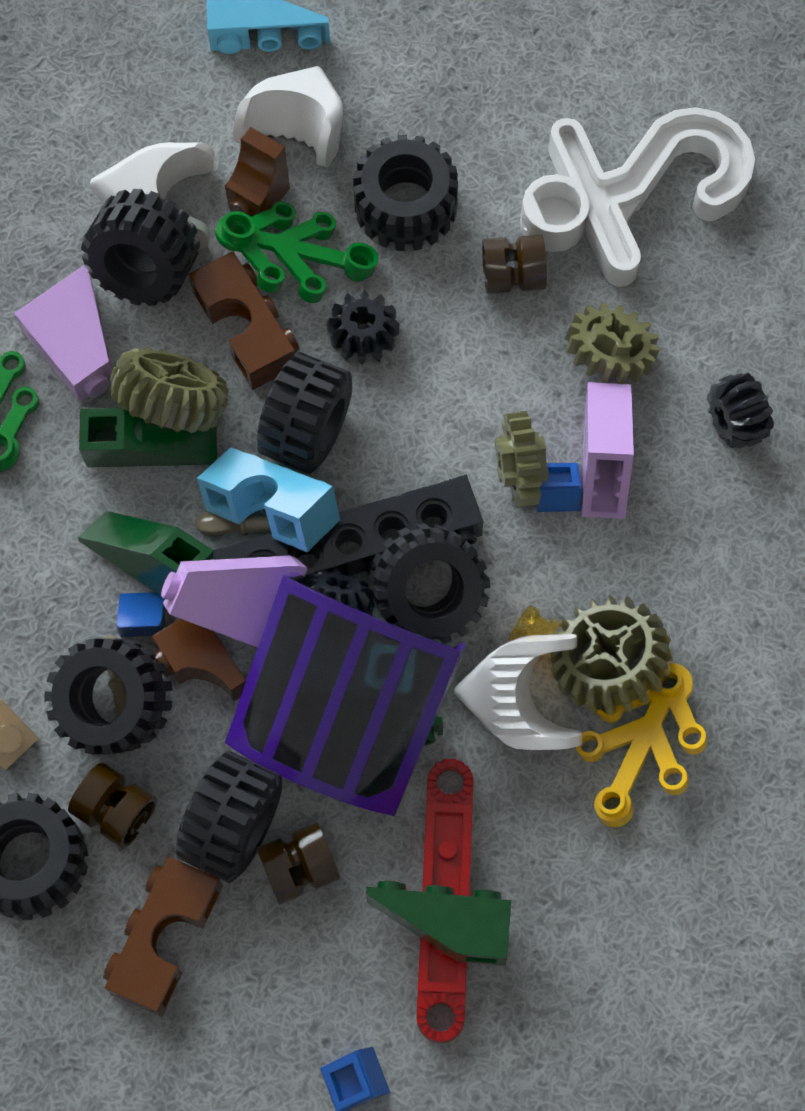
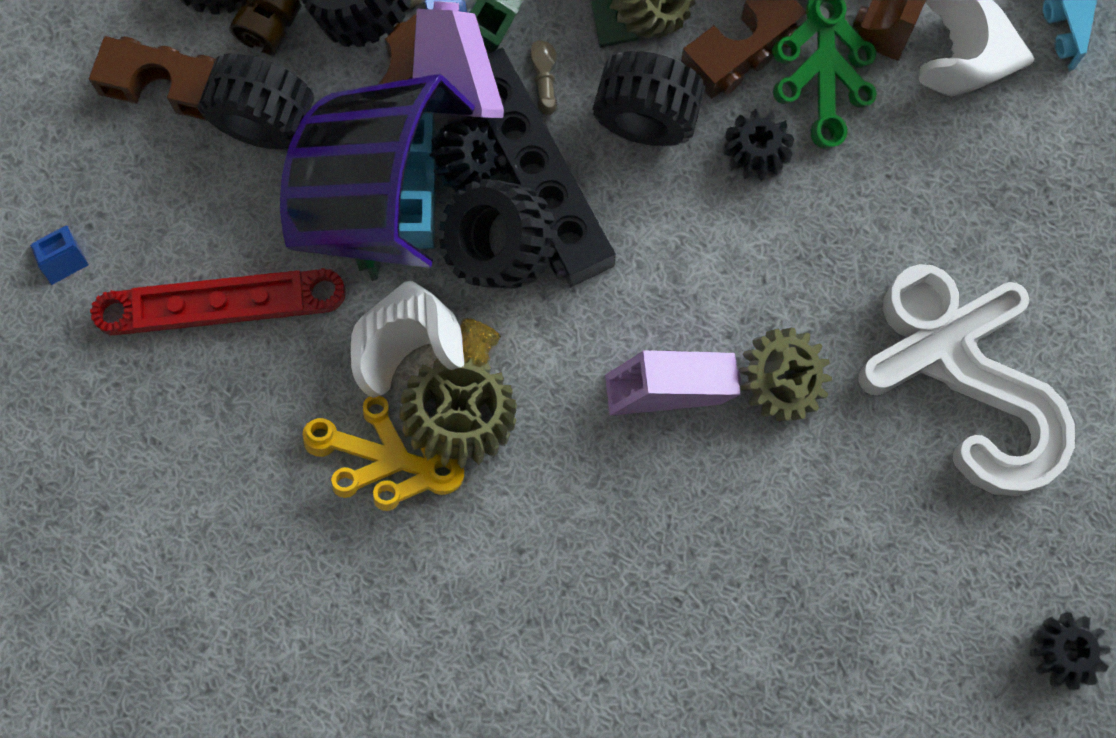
camera: 80 degrees right, 5 degrees up
(295, 504) = (560, 86): medium azure arch -> none
(315, 859) = (230, 169): dark brown wheel -> none
(405, 163) = (919, 128): black tyre -> none
(457, 925) = (182, 303): dark green slope -> none
(521, 459) = (639, 300): olive gear -> none
(529, 263) = (862, 279): dark brown wheel -> none
(562, 489) = (626, 341): blue slope -> none
(740, 410) = (733, 504): black gear -> none

